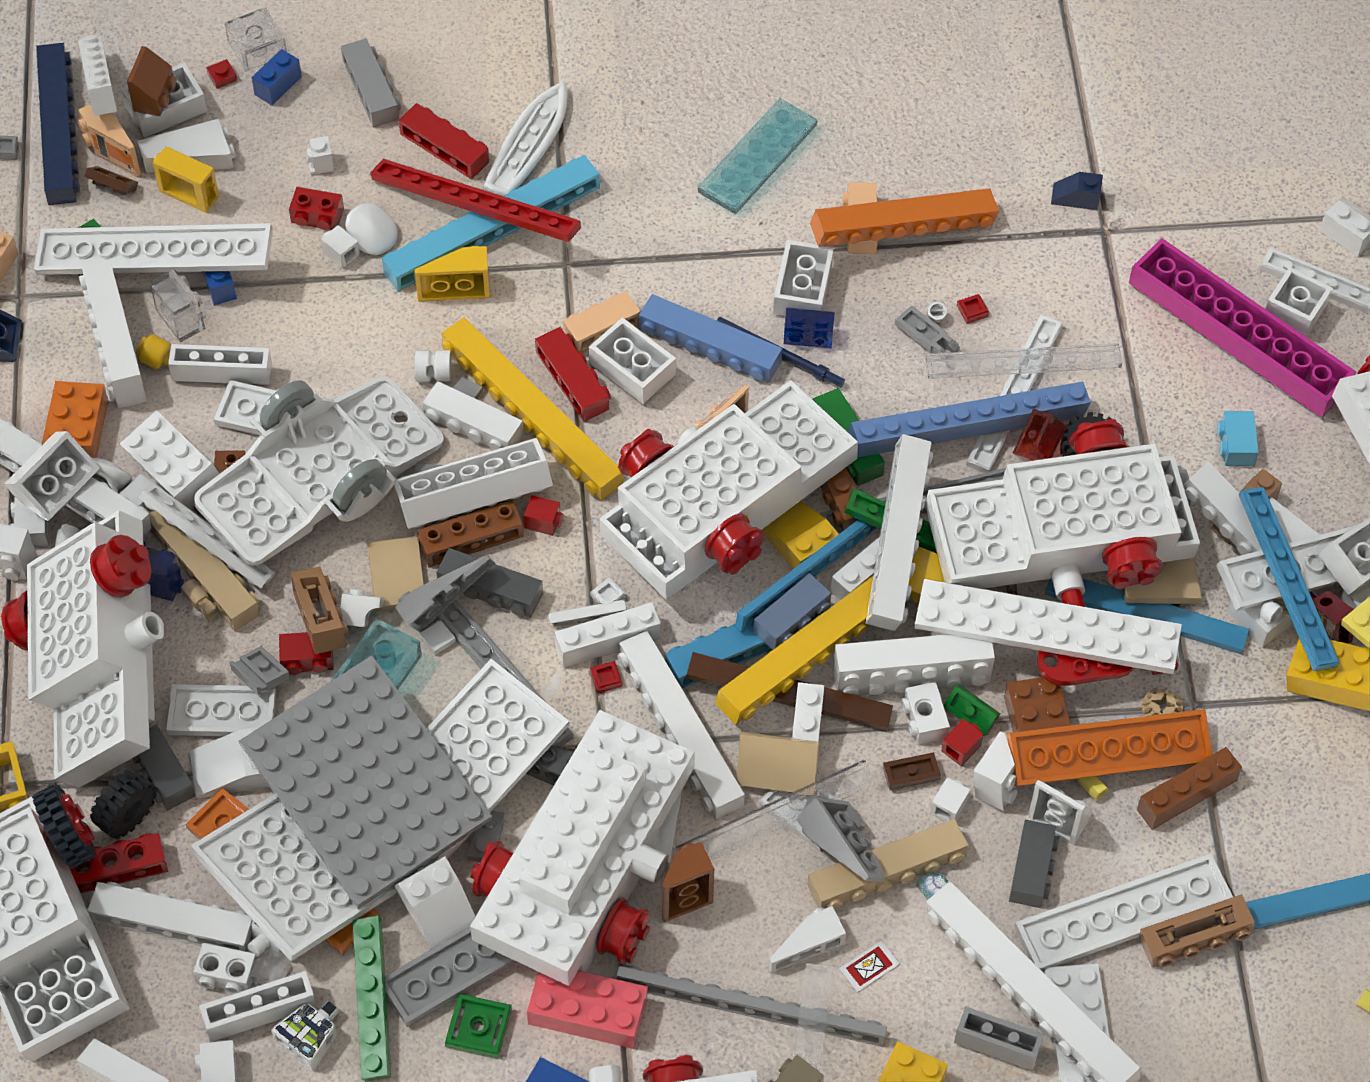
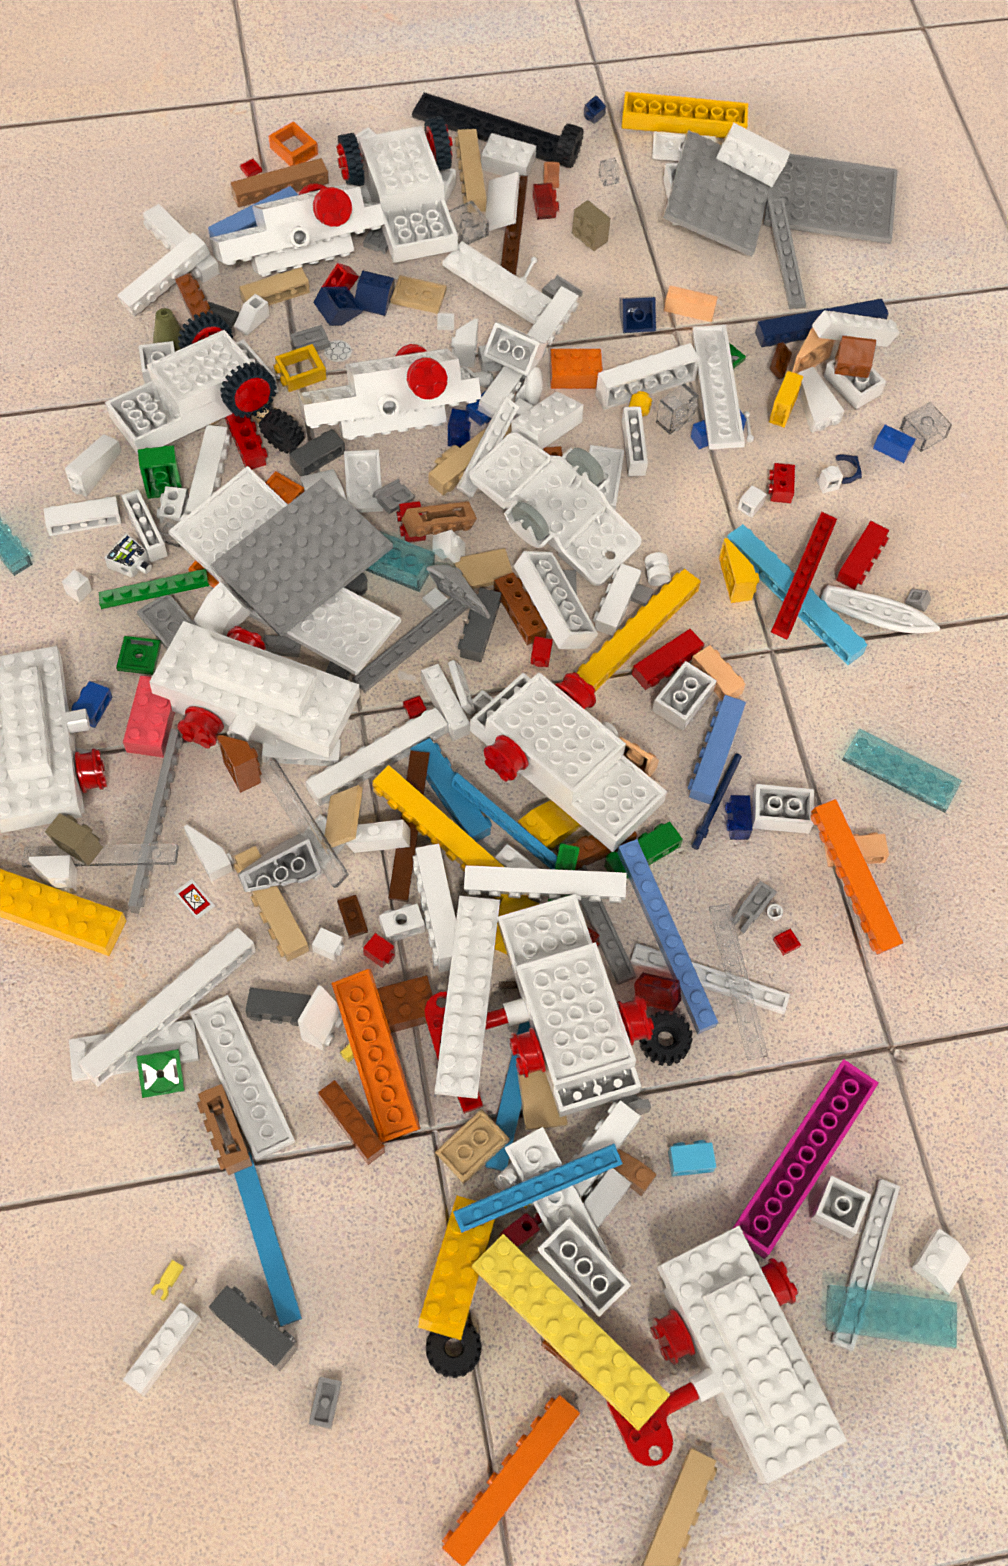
camera: 80 degrees right, 5 degrees up
(172, 971) = (159, 469): none -> green brick
(221, 73) = (892, 413): red plate -> none
(295, 125) = (855, 462): none -> dark blue cap
(370, 82) = (905, 502): light grey brick -> none
(371, 228) = (771, 518): white piece -> none
(514, 97) = (918, 599): none -> light grey slope
(792, 611) = (469, 816): sand blue brick -> none
(931, 884) = (259, 937): tile -> none
(971, 708) = (408, 956): green plate -> none
(994, 775) = (343, 965): white slope -> none
(999, 1038) = (130, 985): light grey brick -> none
(1078, 191) = (922, 1020): dark blue slope -> none
(1107, 1015) = (160, 1061): none -> green piece
(1153, 698) = (434, 1110): tan gear -> none
(1220, 661) = (472, 1146): none -> tan tile

